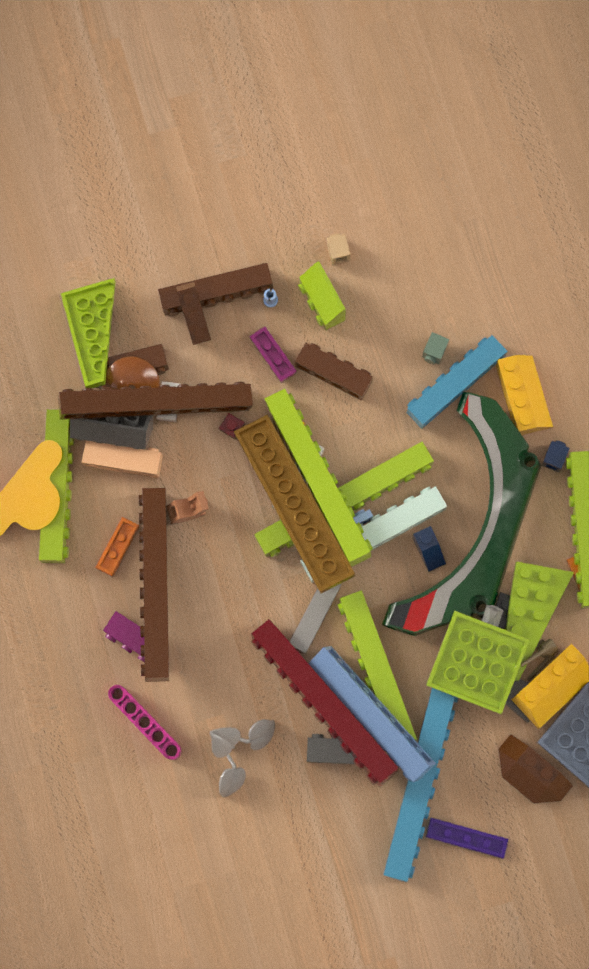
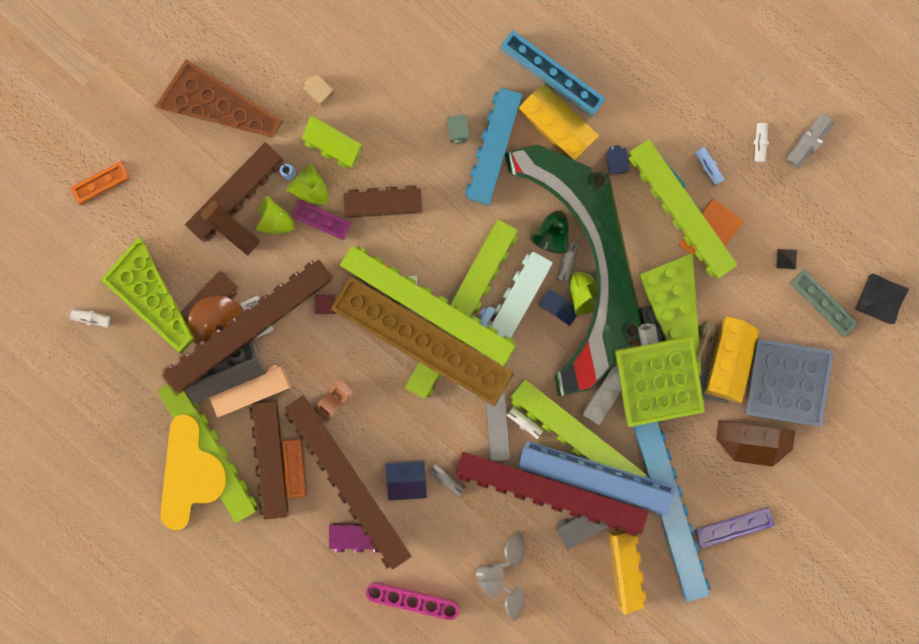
camera: 40 degrees left, 10 degrees up
(31, 319) = (90, 318): none -> white pin
(102, 525) = (270, 460): none -> reddish brown brick
(111, 217) = (100, 183): none -> orange tile
(205, 615) = (406, 480): none -> dark blue slope
(234, 329) = (274, 219): none -> lime helmet
(240, 636) = (446, 479): none -> light grey pin
(242, 202) = (207, 98): none -> dark orange wing
(280, 322) = (309, 187): none -> lime helmet
(338, 629) = (525, 422): none -> white pin
(347, 814) = (626, 571): none -> yellow slope
(419, 649) = (603, 397): none -> light grey brick
(456, 548) = (583, 292): none -> lime helmet
(461, 482) = (552, 233): none -> dark green helmet
(461, 515) = (568, 262): none -> light grey pin
(544, 350) = (552, 73): none -> dark azure brick

